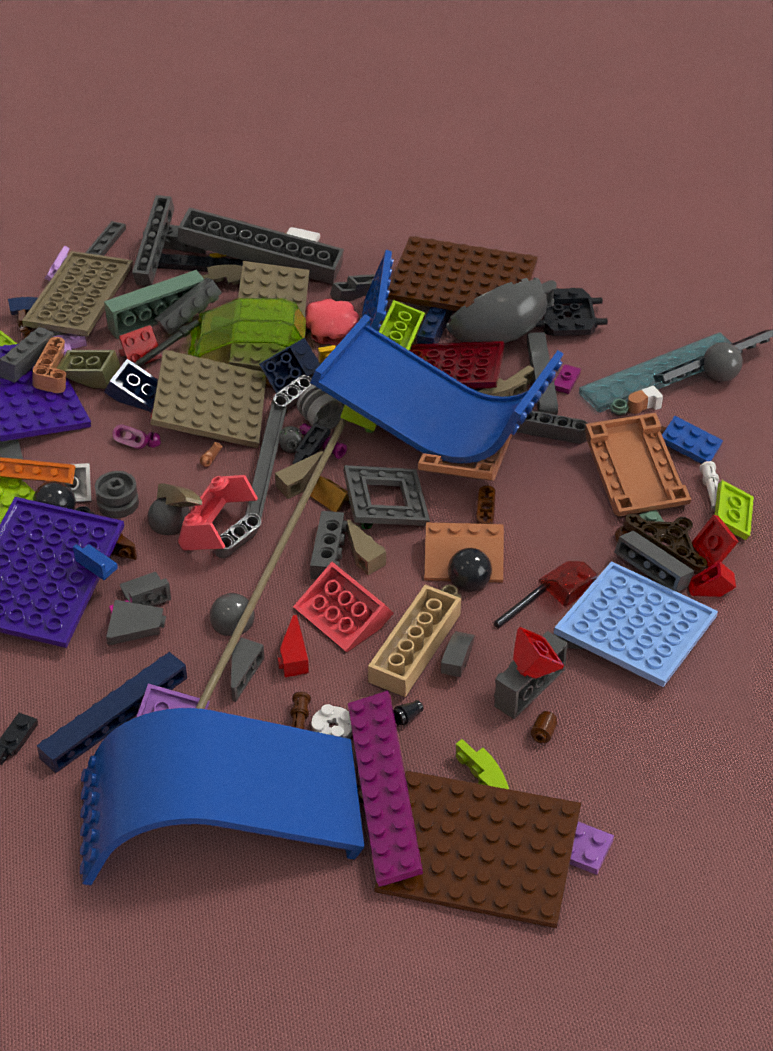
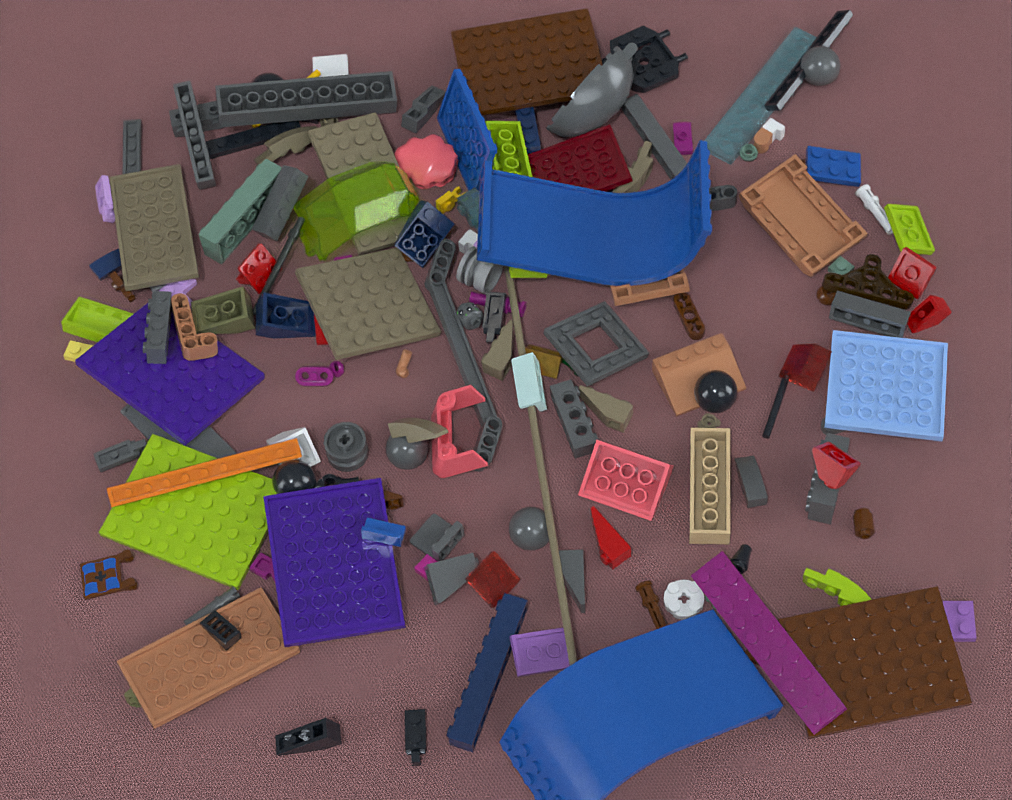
camera: 20 degrees left, 15 degrees up
(168, 636) = (492, 579): none -> clear red plate
(306, 501) = (529, 382): none -> light aqua panel

